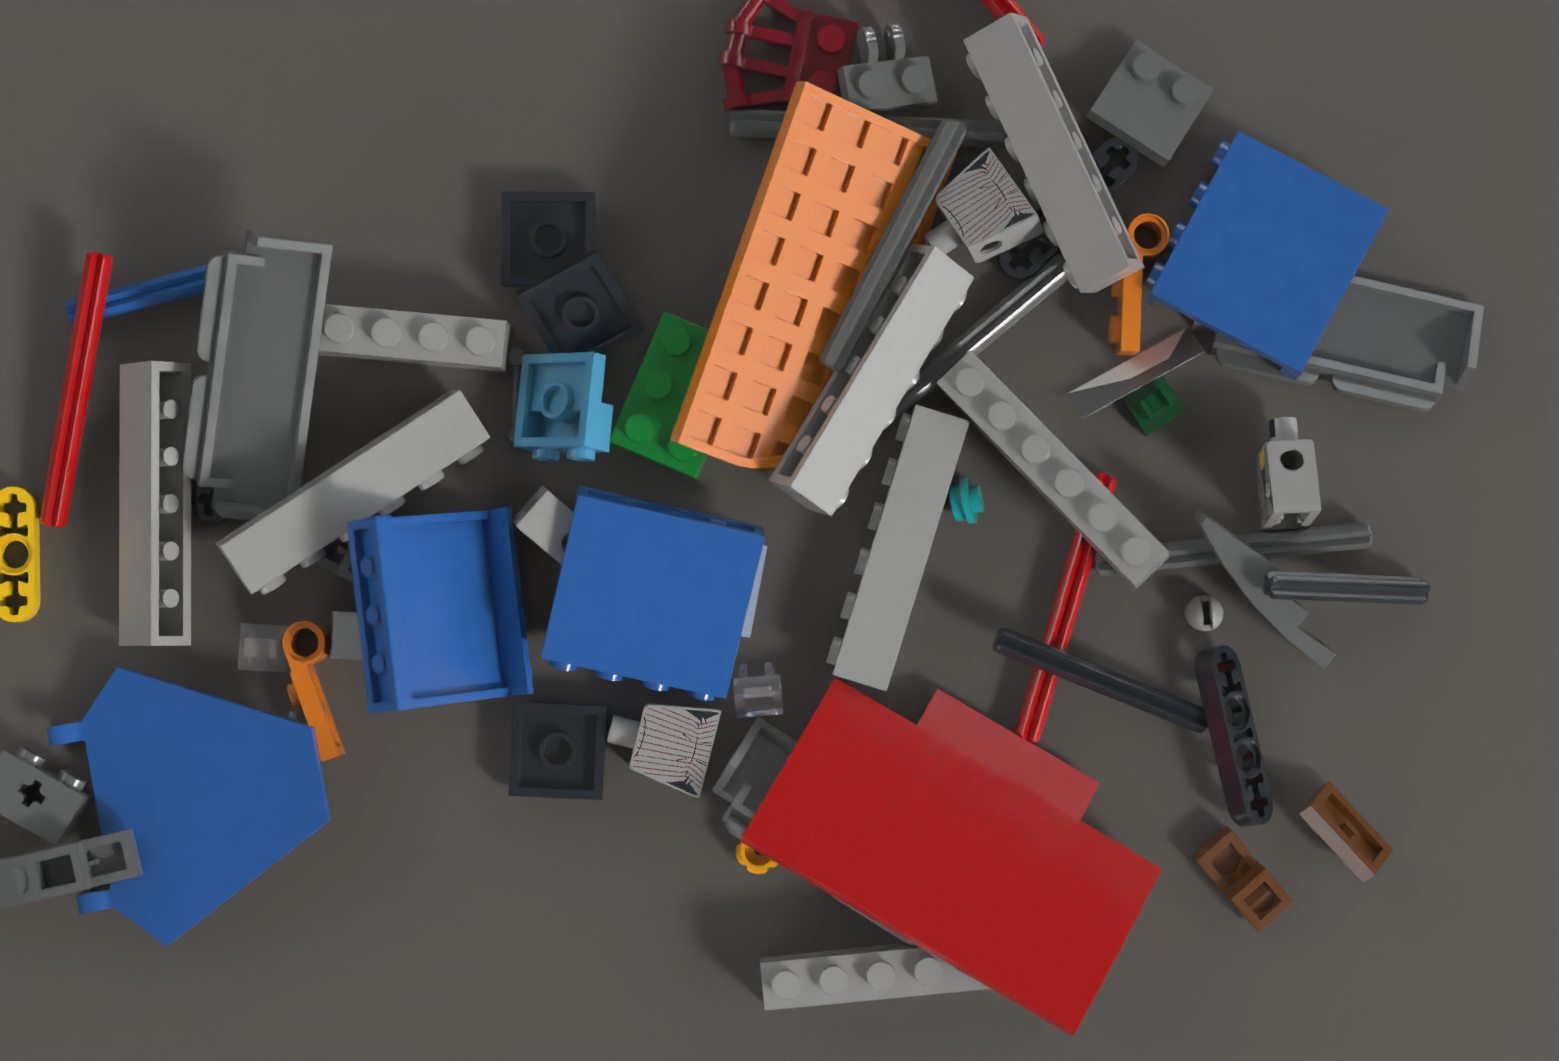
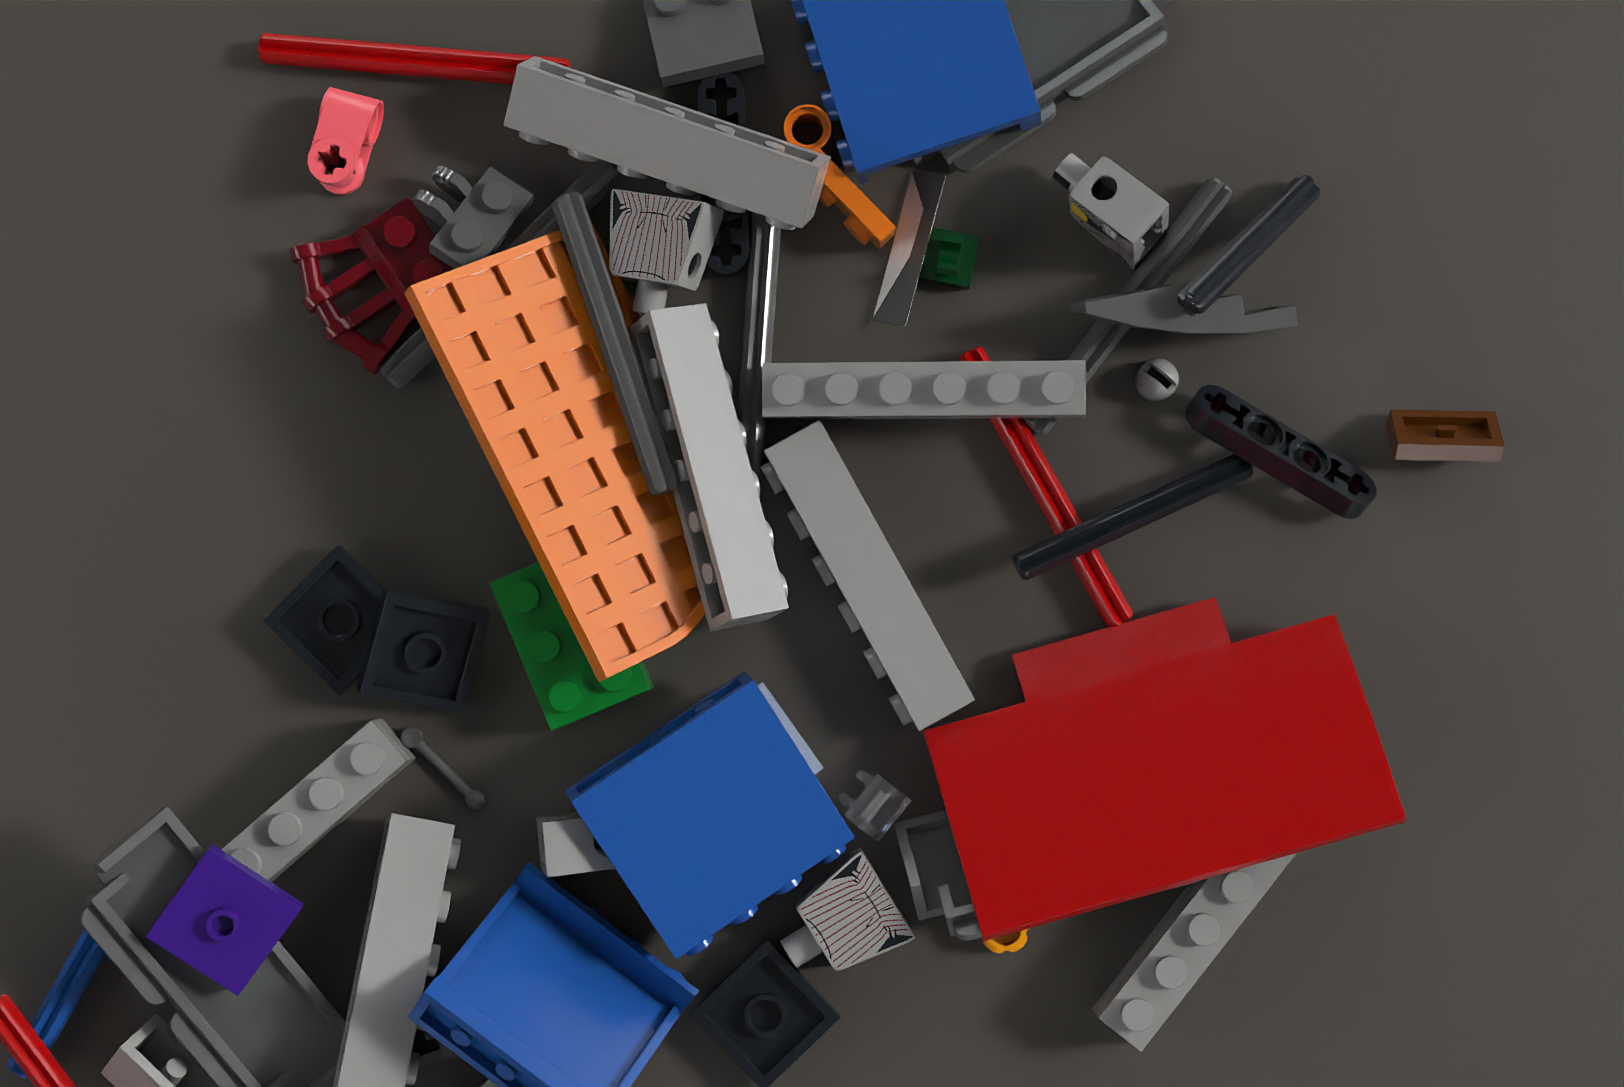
camera: 45 degrees left, 0 degrees up
(295, 349) = (224, 919): none -> dark purple plate
(563, 407) = (487, 741): dark azure plate -> none
(966, 500) = (881, 484): teal plate -> none
(1242, 879) = (1402, 555): reddish brown slope -> none

